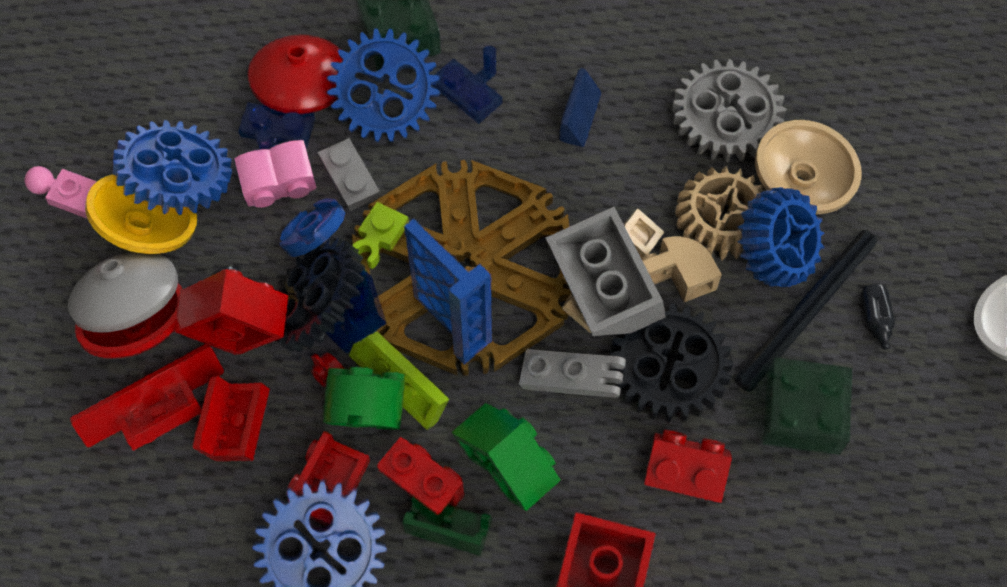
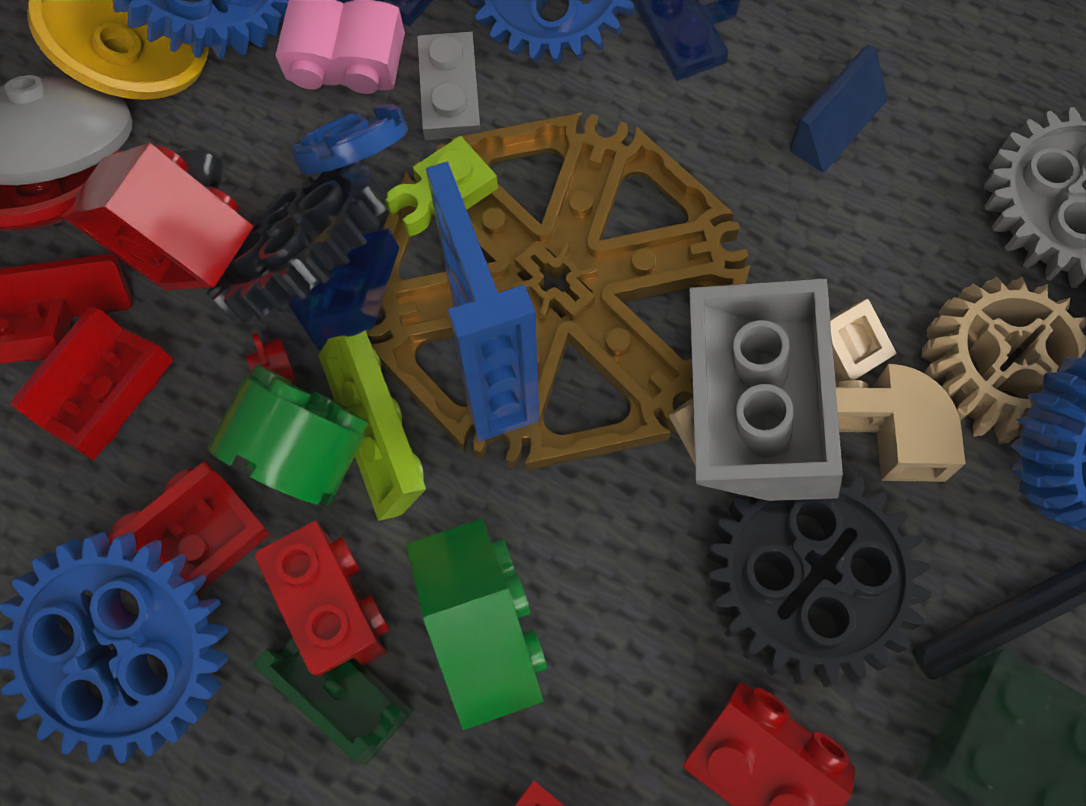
camera: 25 degrees right, 5 degrees up
(571, 373) = (644, 527): light grey hinge -> none

